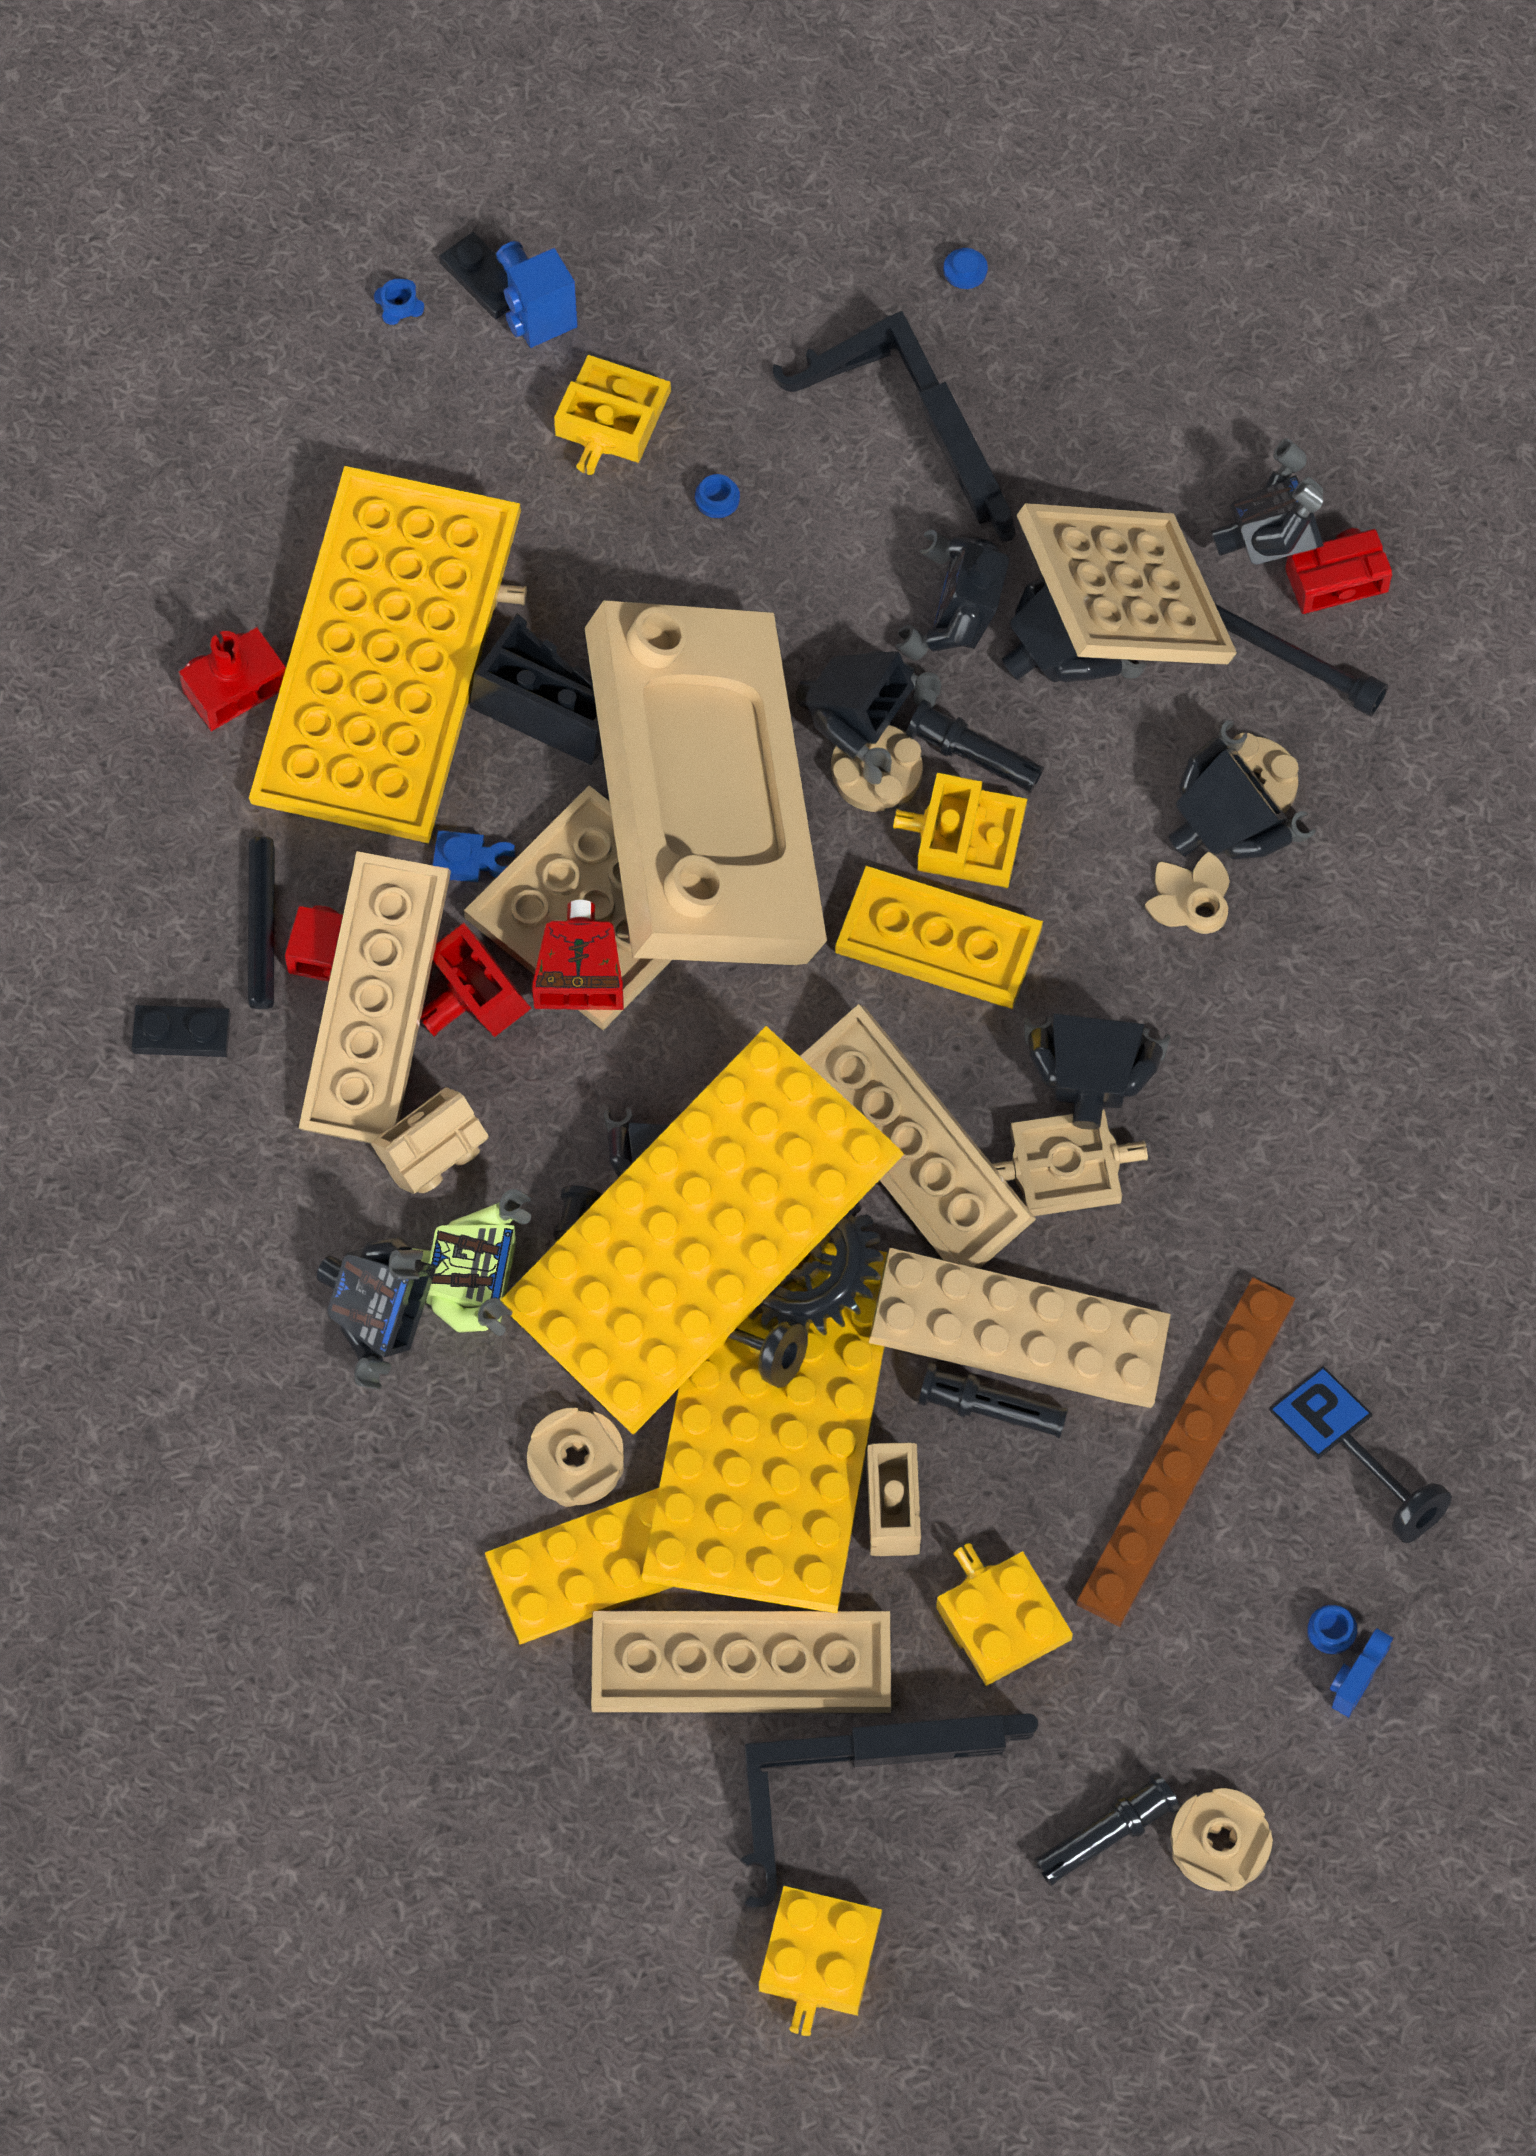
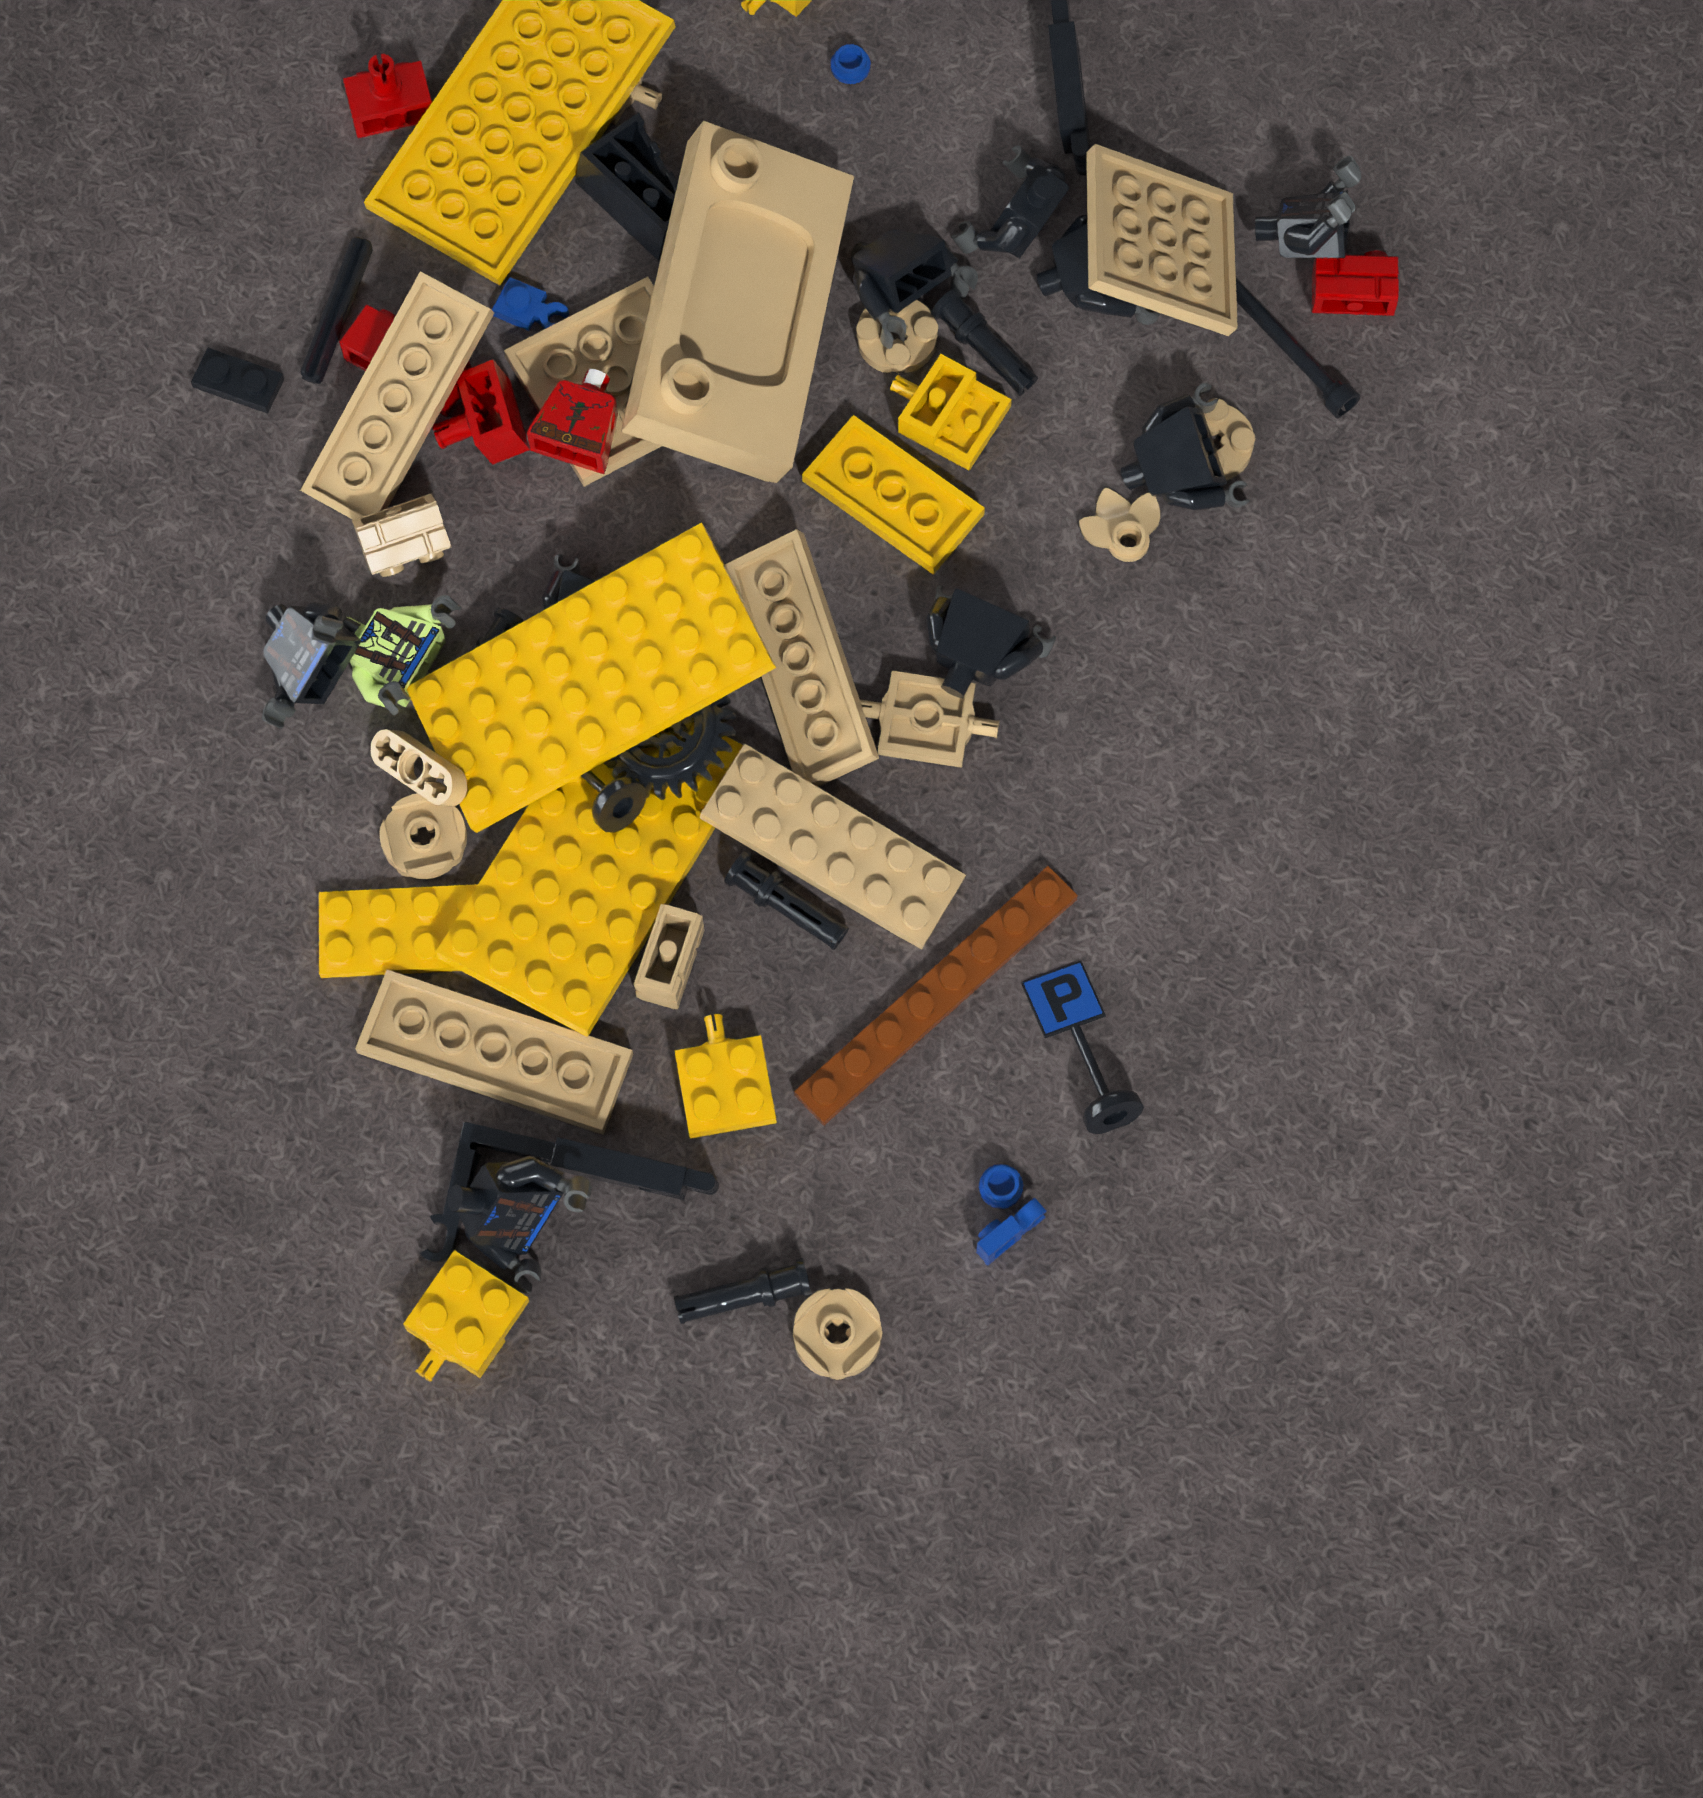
camera: 20 degrees right, 5 degrees up
(564, 1376) = (433, 767): none -> tan beam
(831, 1818) = (509, 1208): none -> torso

